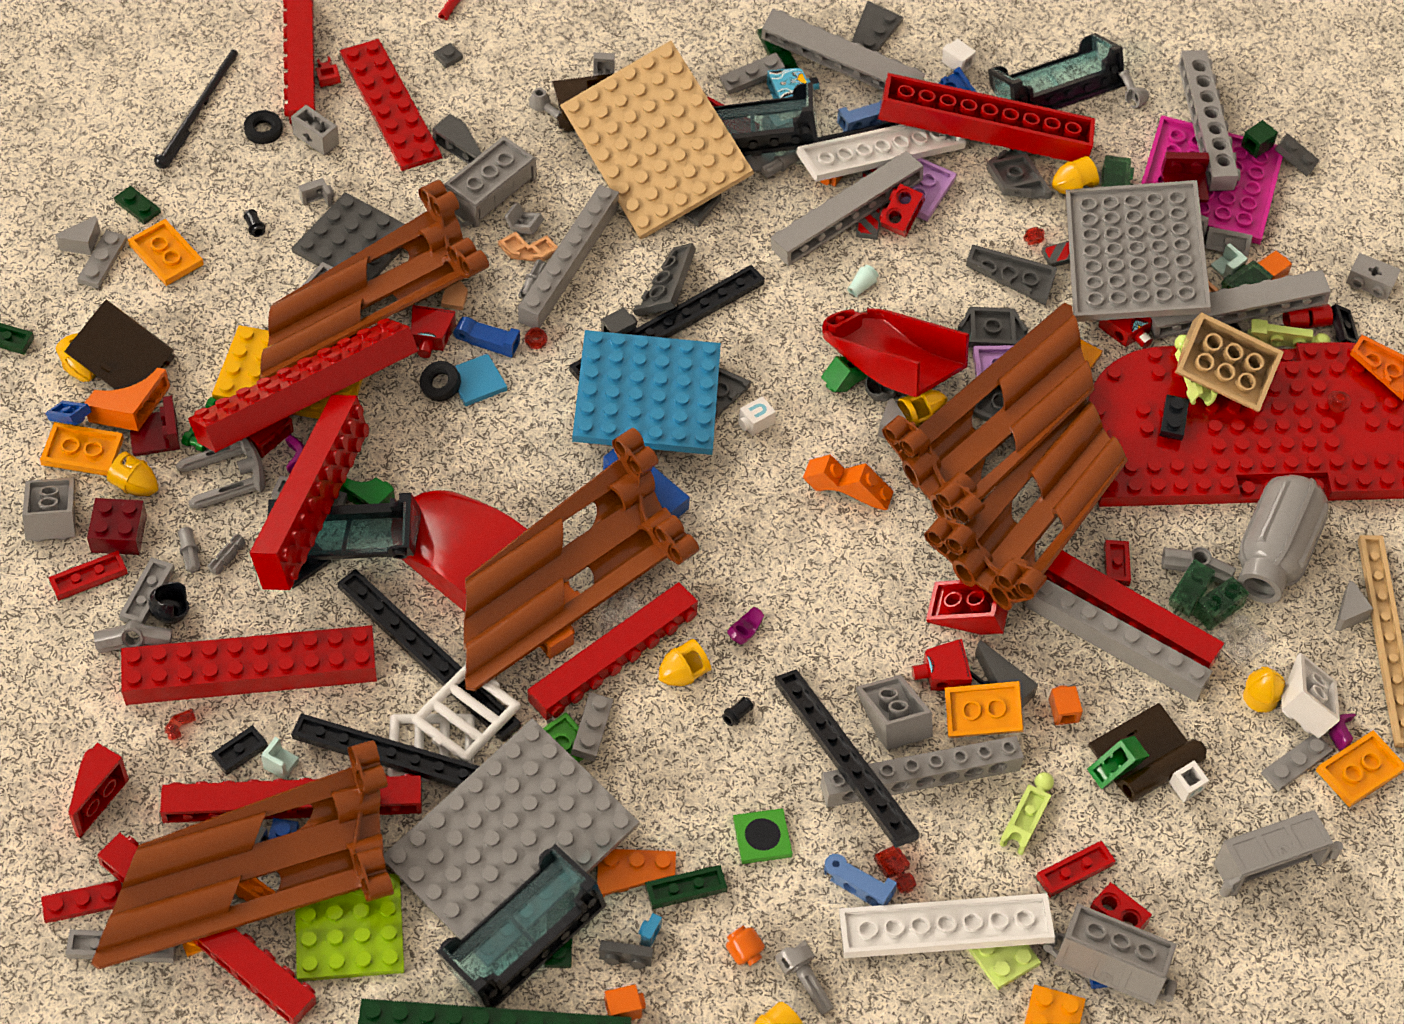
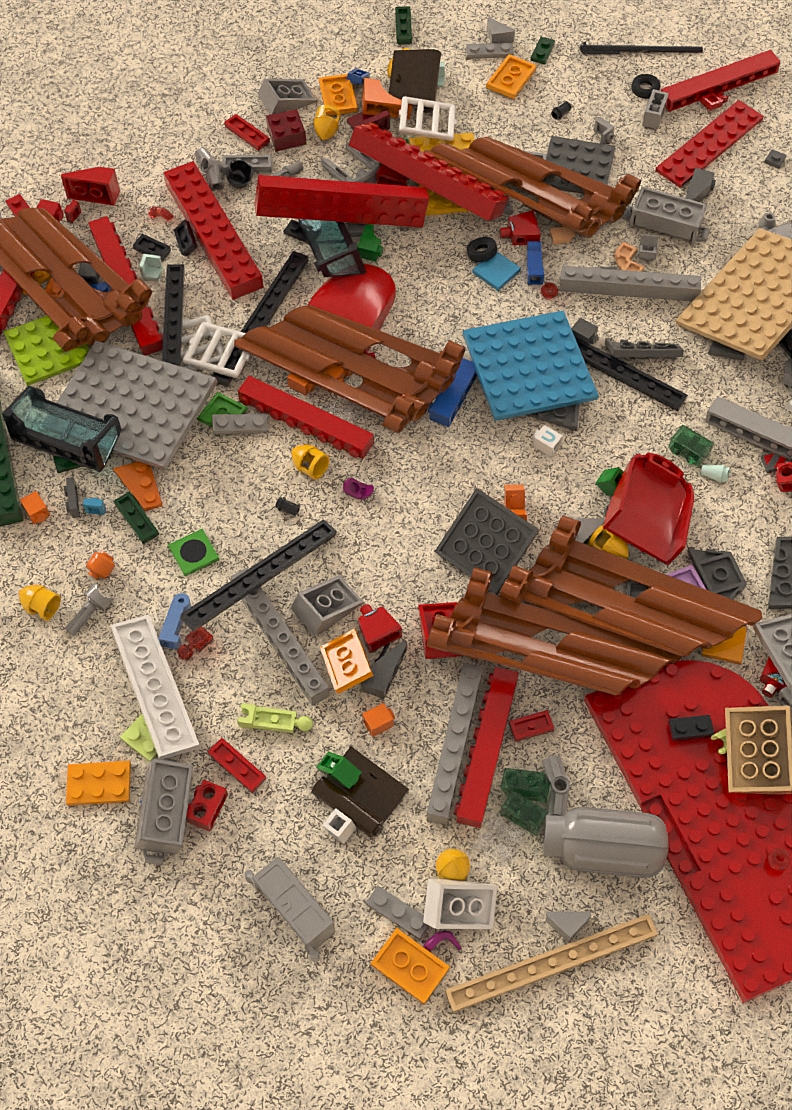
camera: 75 degrees right, 5 degrees up
(114, 827) = (72, 211): none -> red plate
(216, 376) = (419, 118): none -> white bar
(245, 703) = (185, 238): none -> black plate
(820, 288) = (690, 445): none -> clear green brick
(877, 516) = (487, 538): none -> dark grey plate

